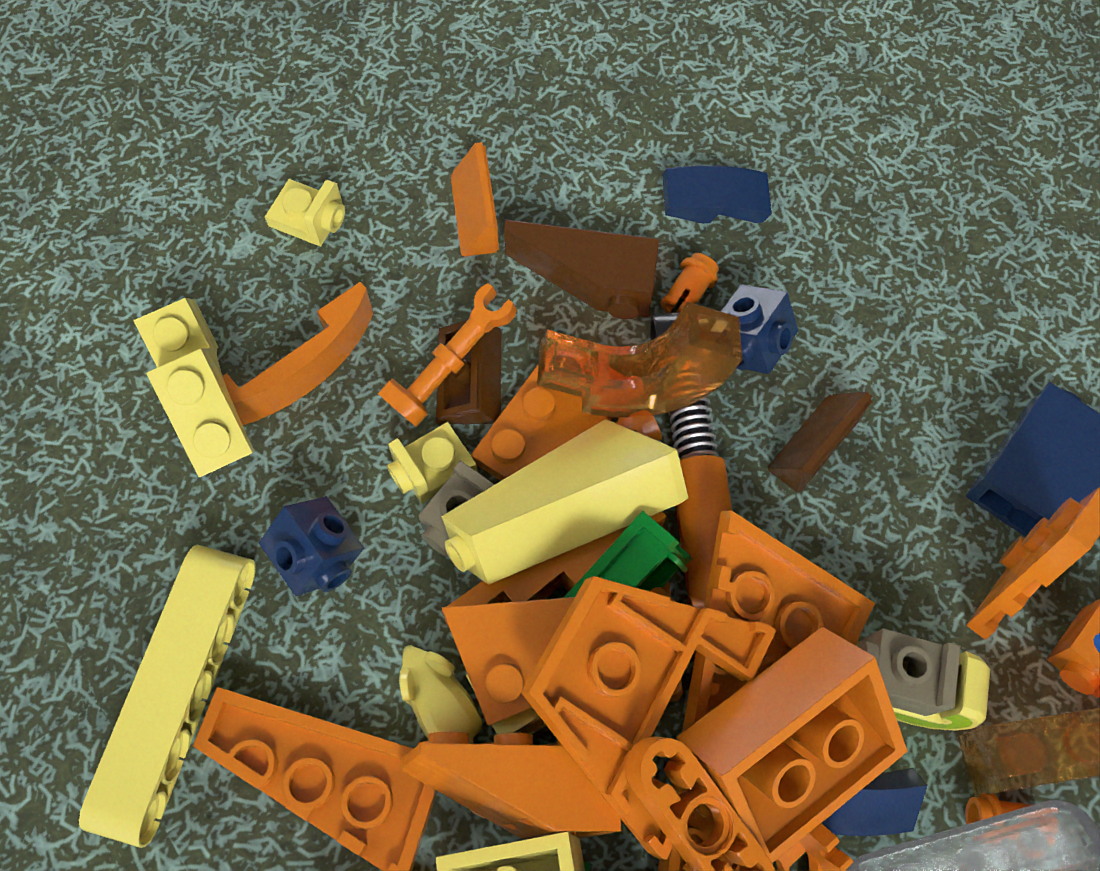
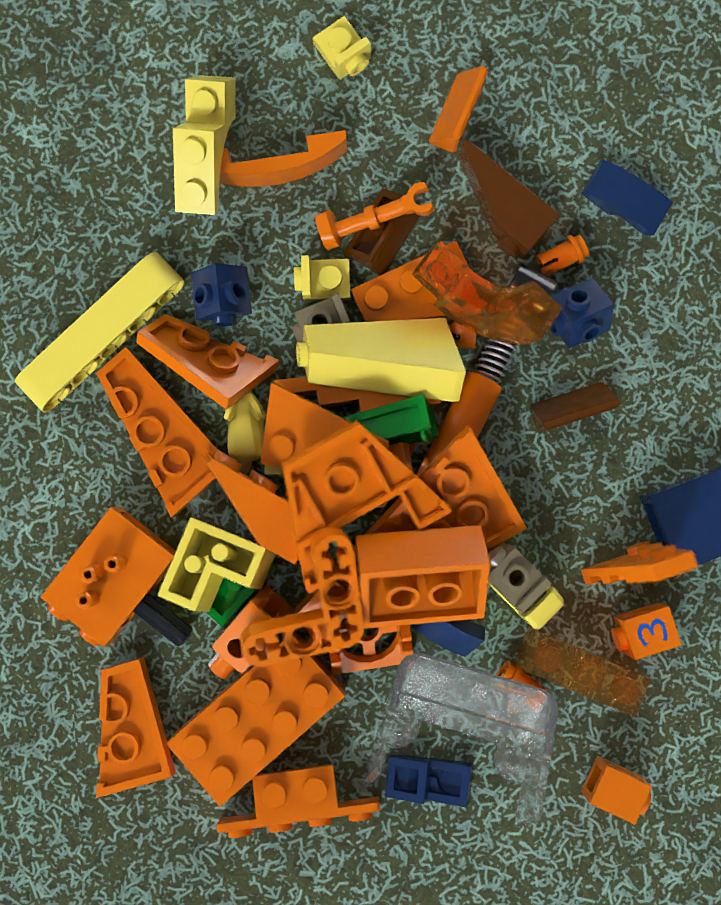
camera: 30 degrees right, 20 degrees up
(353, 645) = (211, 366): none -> orange wing

